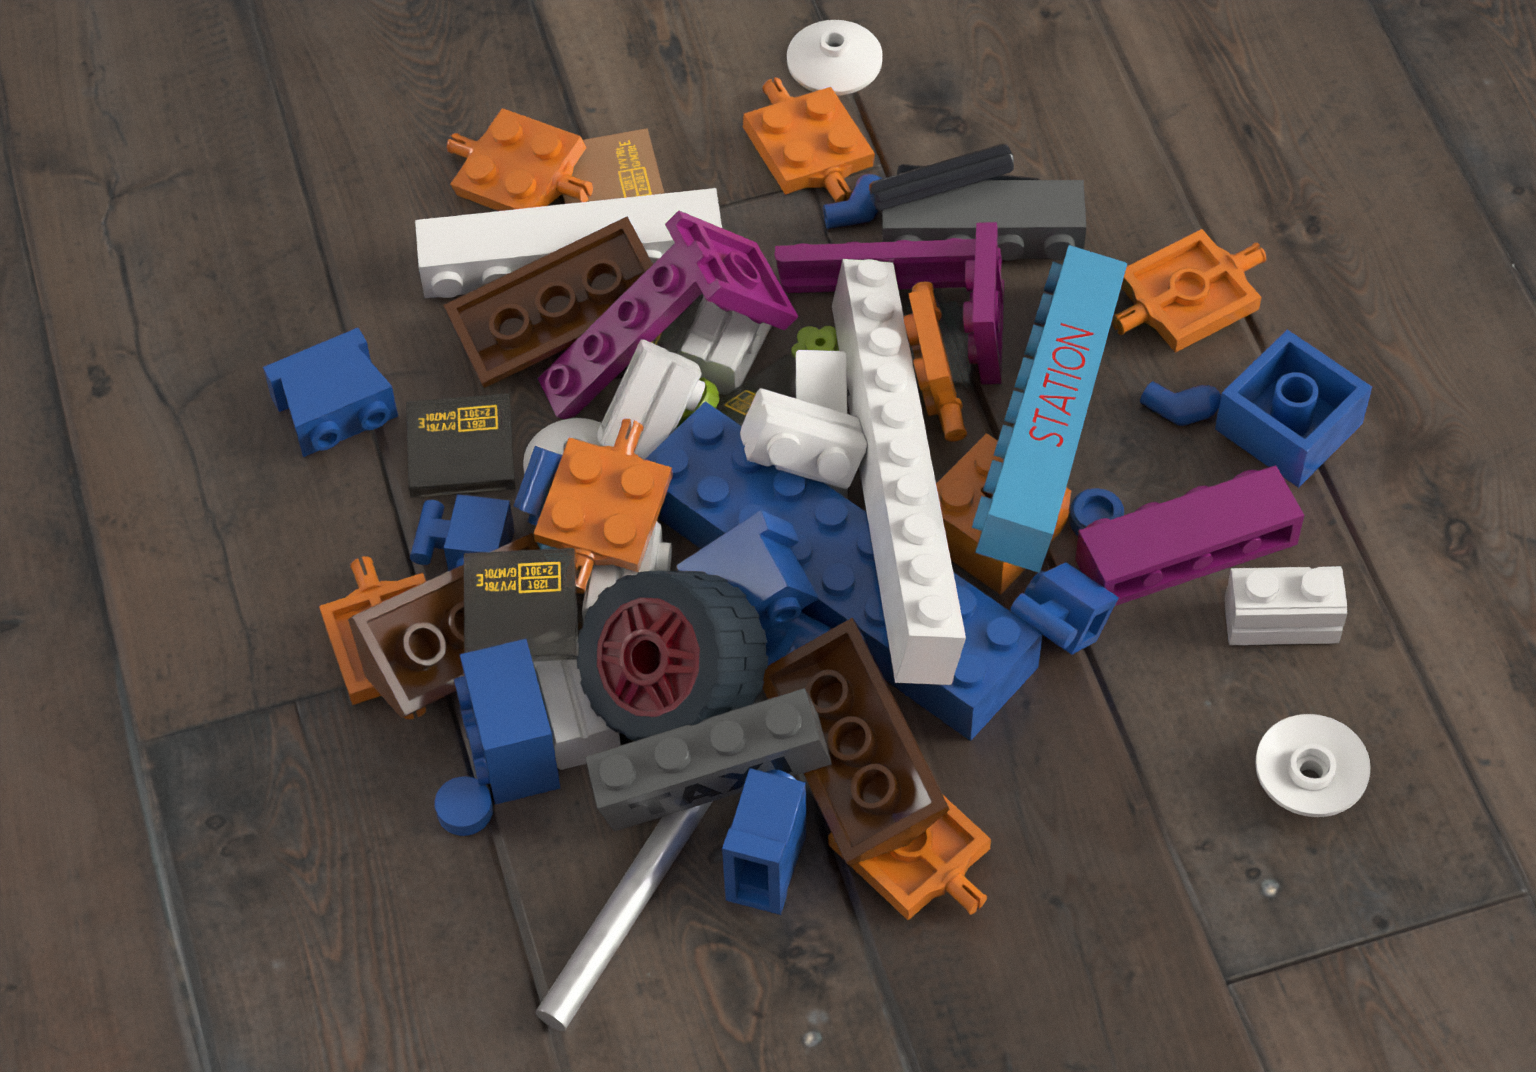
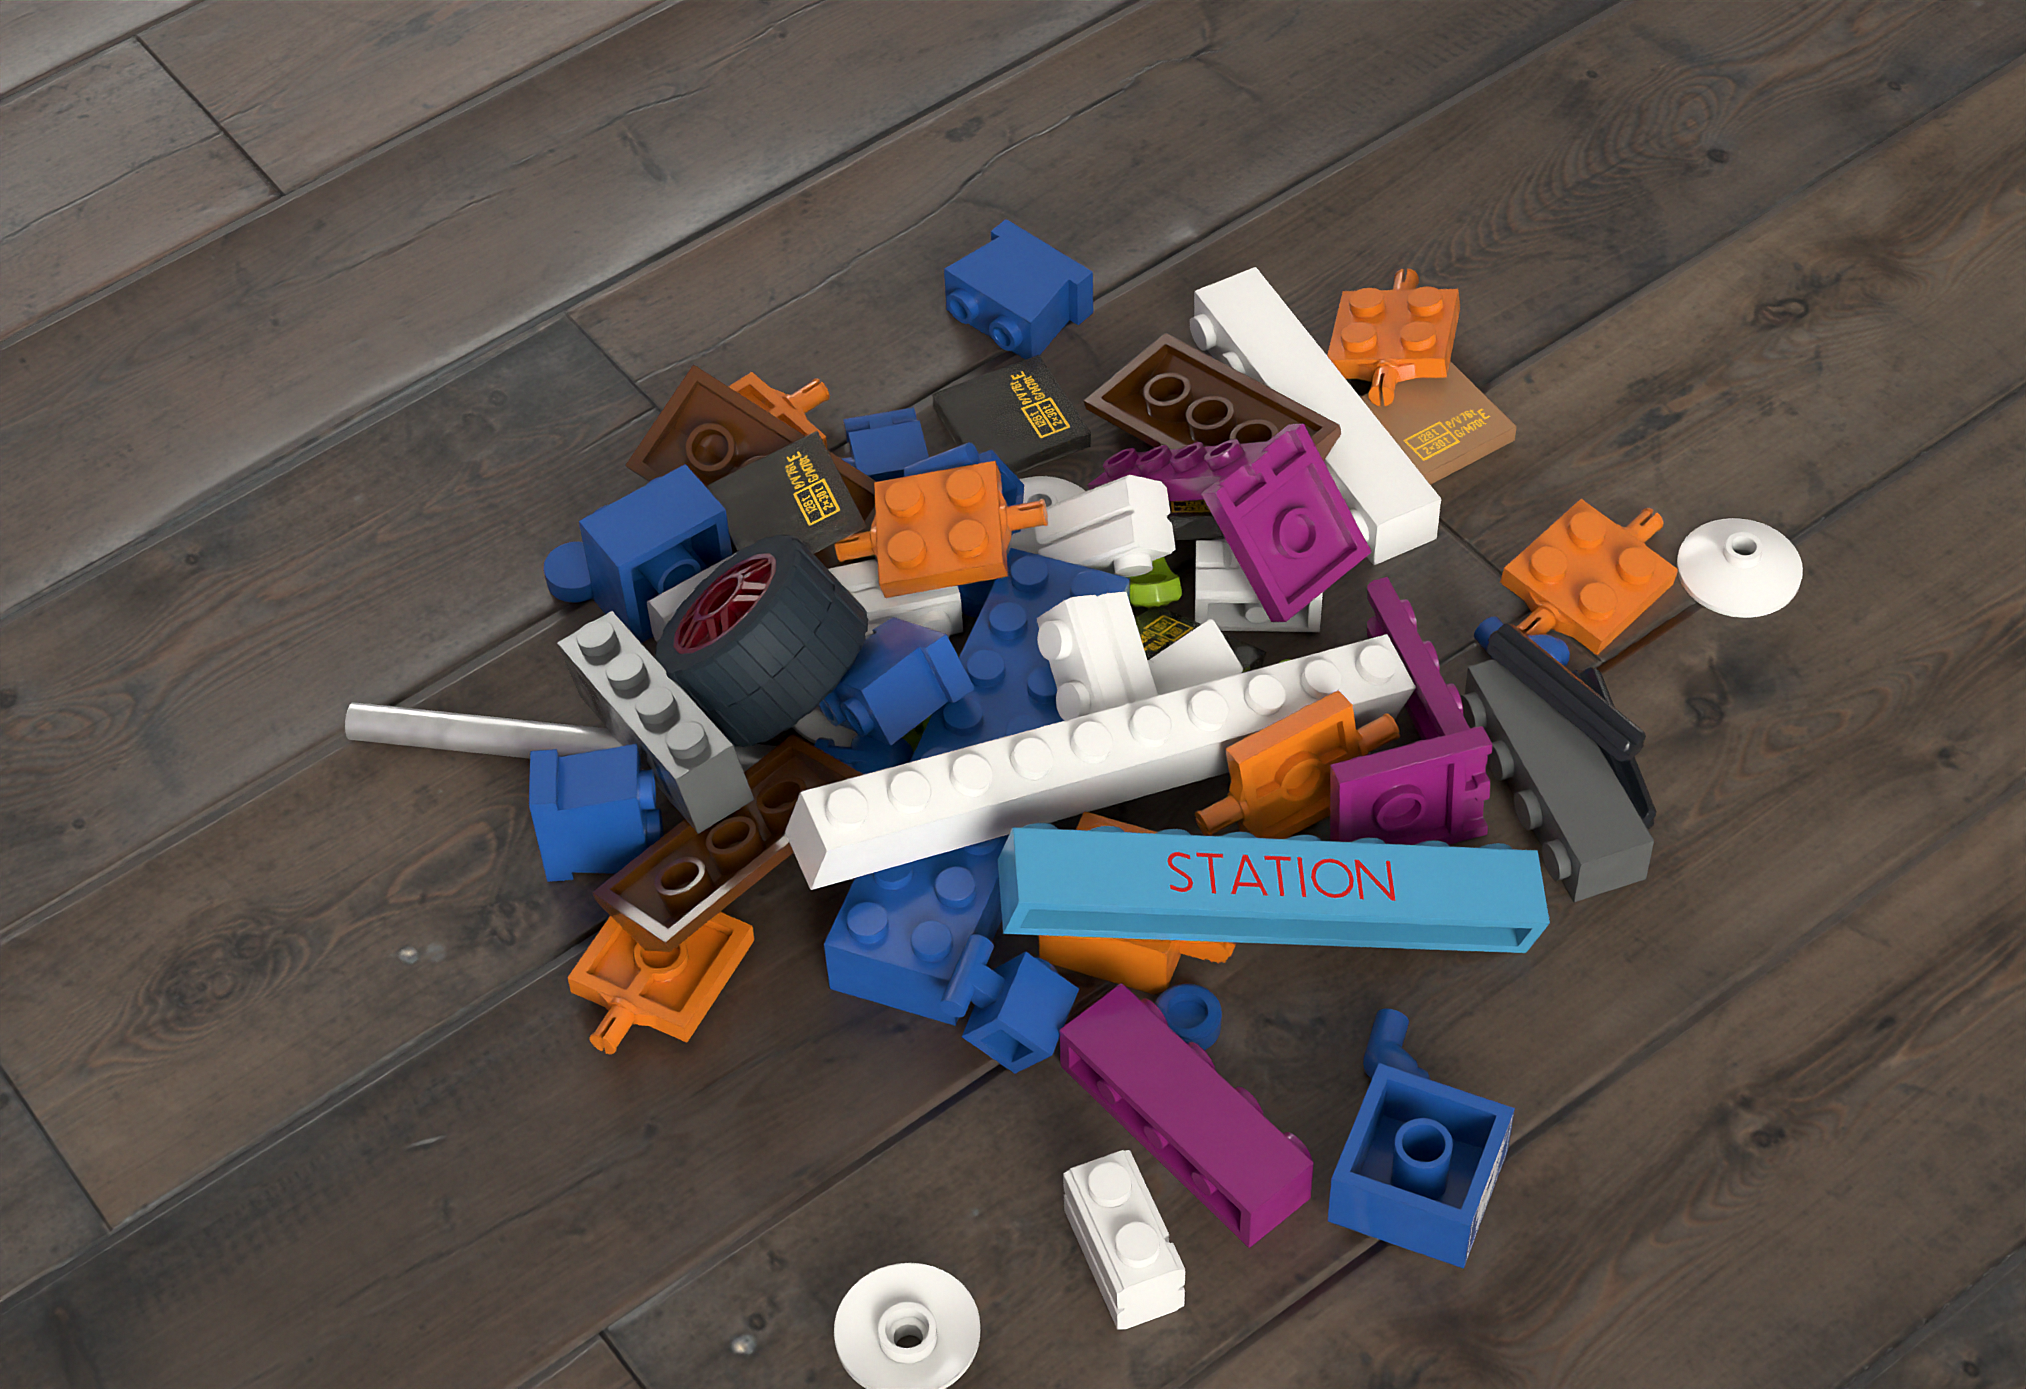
camera: 70 degrees right, 5 degrees down
(1189, 290) = (1568, 1015): orange plate -> none

